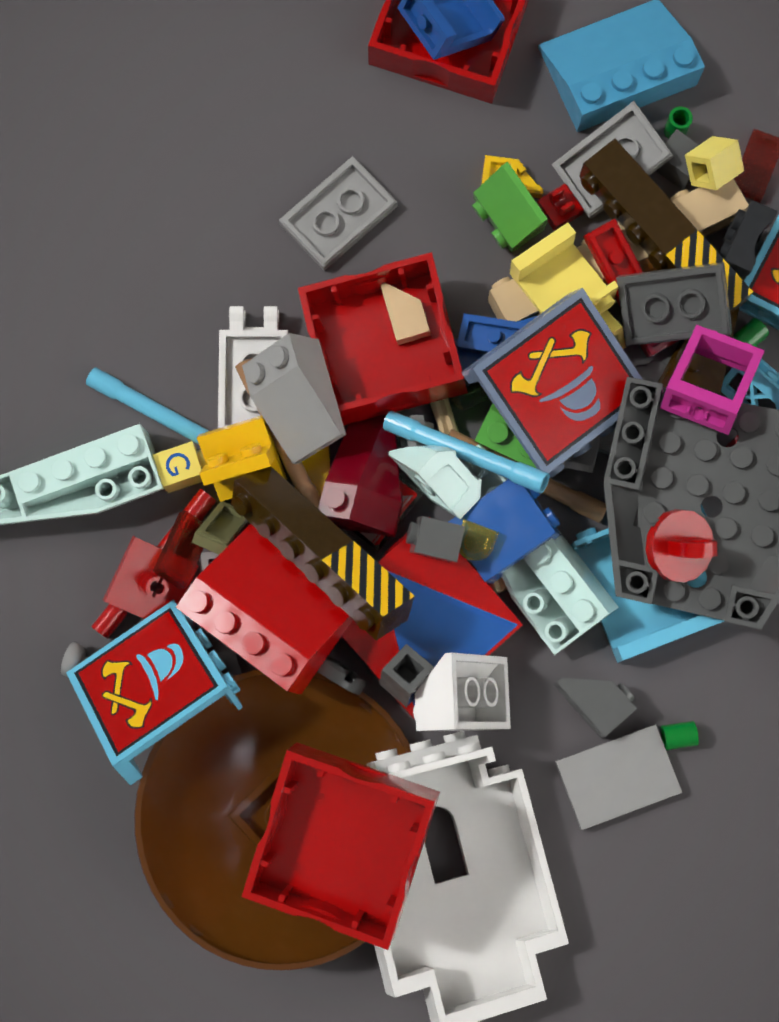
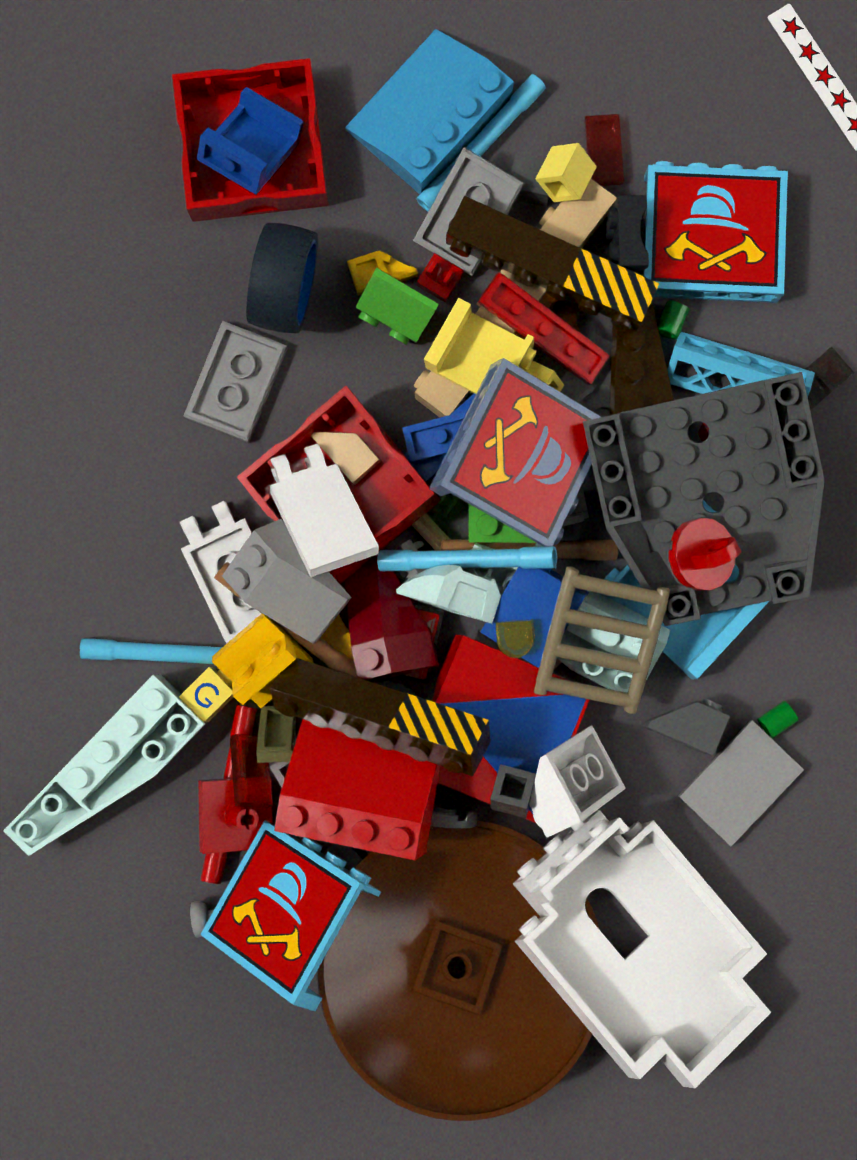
camera: 25 degrees left, 5 degrees up
(341, 844) = (529, 972): red tile -> none
(355, 351) = (321, 513): none -> white tile
(421, 138) = (281, 277): none -> black wheel
(435, 538) = (479, 655): dark grey brick -> none
(574, 621) = (563, 614): none -> dark tan bar
(672, 302) = (593, 329): dark grey tile -> none
(678, 115) = (512, 136): green hinge -> none
(700, 91) = (518, 103): none -> medium azure piece
(716, 411) = (665, 417): dark pink window -> none

